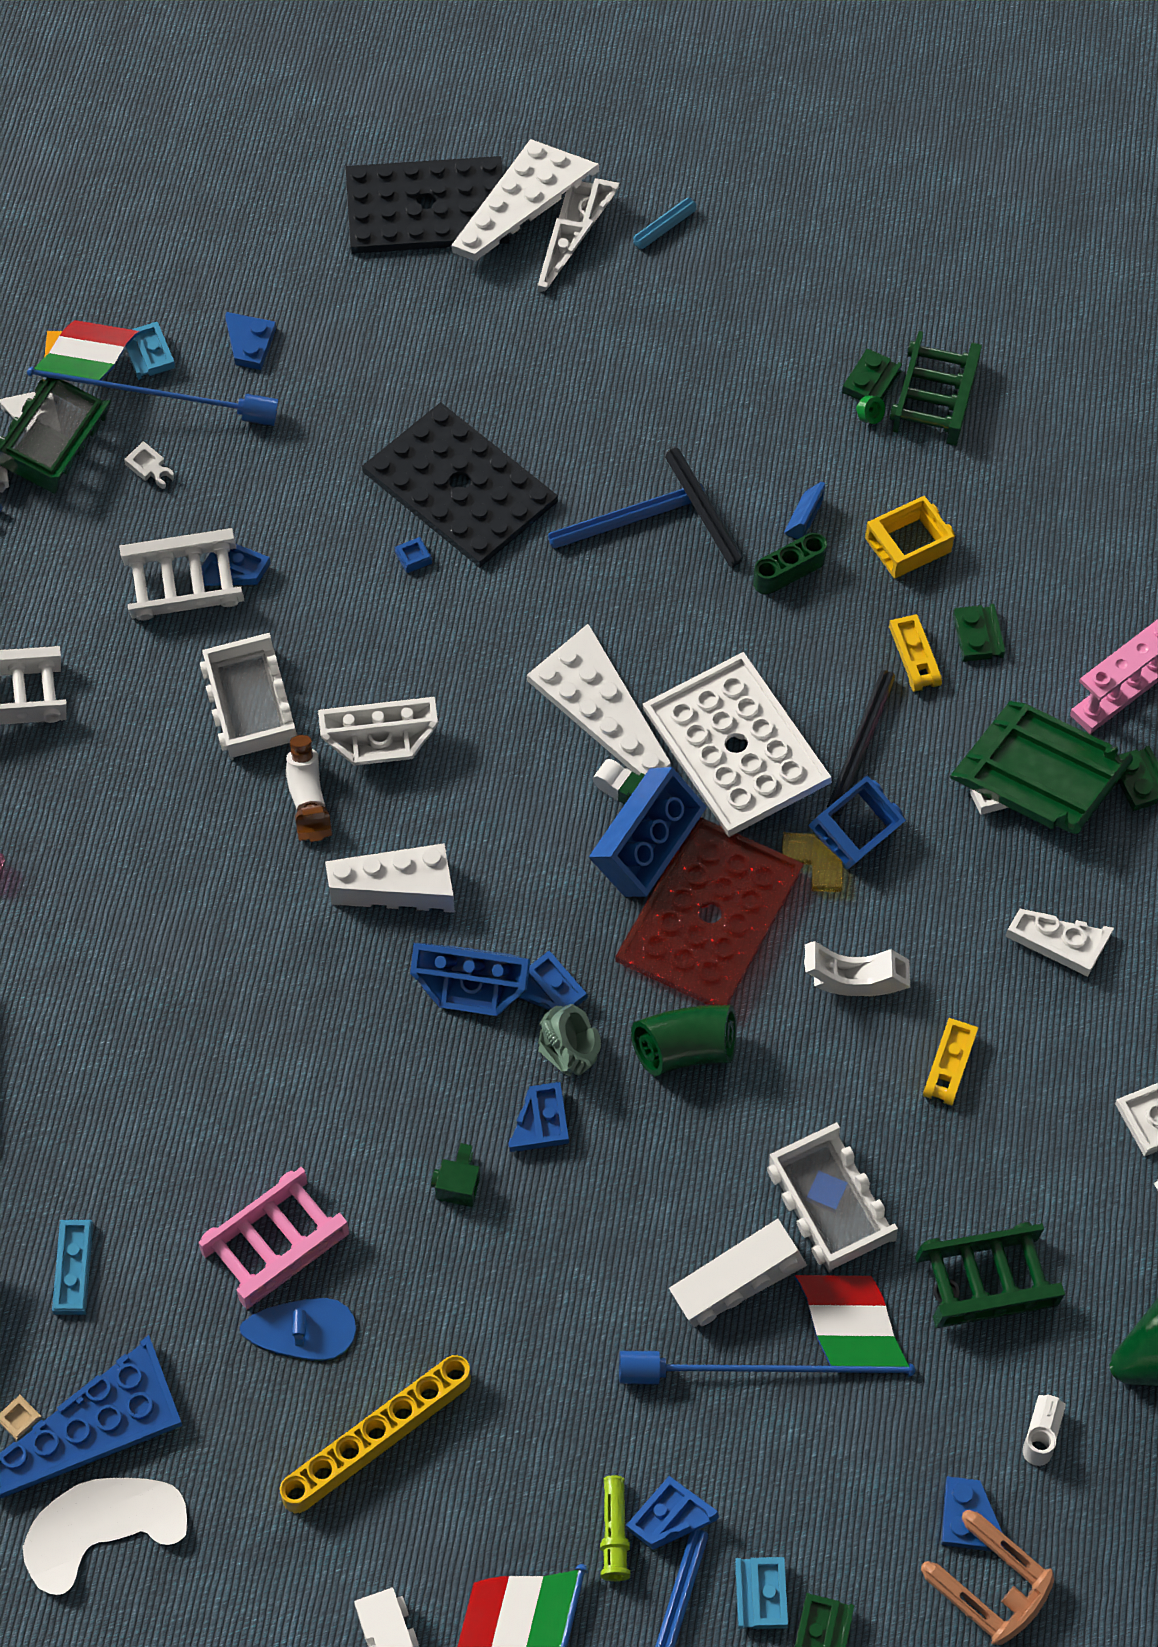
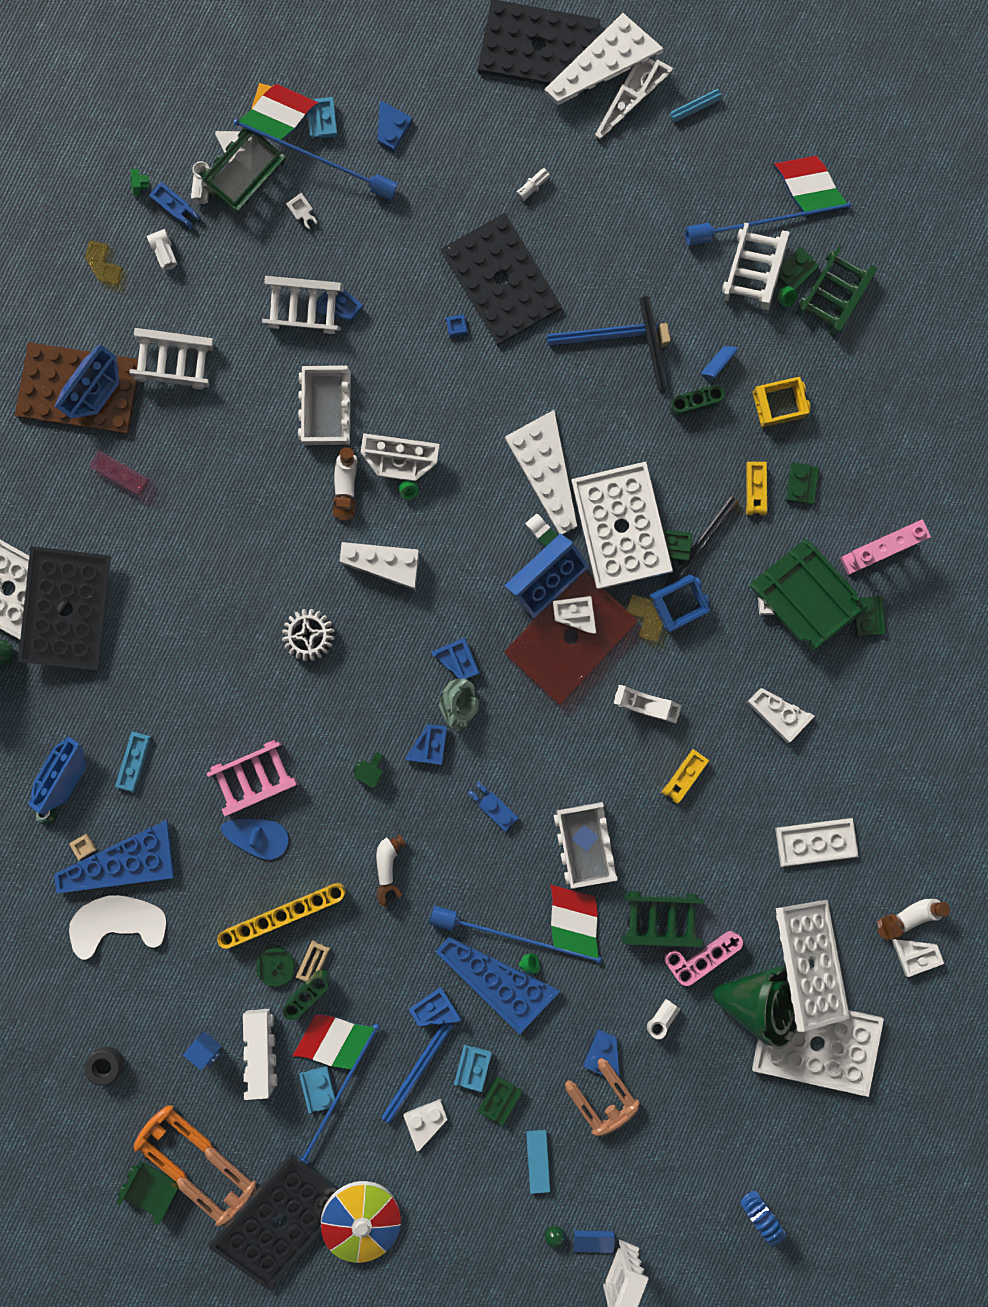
camera: 10 degrees right, 25 degrees up
(287, 1021) = (306, 626): none -> white gear
(386, 1523) = (275, 966): none -> dark green tile
(405, 775) = (408, 489): none -> green tile
(443, 1527) = (319, 947): none -> tan tile
(456, 1527) = (302, 1002): none -> dark green beam
(469, 361) = (533, 184): none -> white axle
(469, 977) = (411, 642): blue wedge -> none
(519, 1294) = (385, 856): none -> white piece
(614, 1544) = (399, 1016): lime pin -> none
(669, 1184) = (494, 807): none -> blue hinge
(685, 1038) = (530, 721): dark green brick -> none
(707, 872) = (575, 613): none -> white wing
(715, 494) = (664, 336): none -> tan tile
(738, 1274) = (516, 880): white wedge -> none
(771, 1450) = (507, 990): none -> blue wing
(801, 1401) = (530, 963): none -> green tile
(830, 748) = (678, 544): none -> dark green plate
(838, 391) = (769, 278): none -> white fence
(844, 273) = (809, 187): none -> flag
(1077, 1313) = (705, 954): none -> bright pink beam

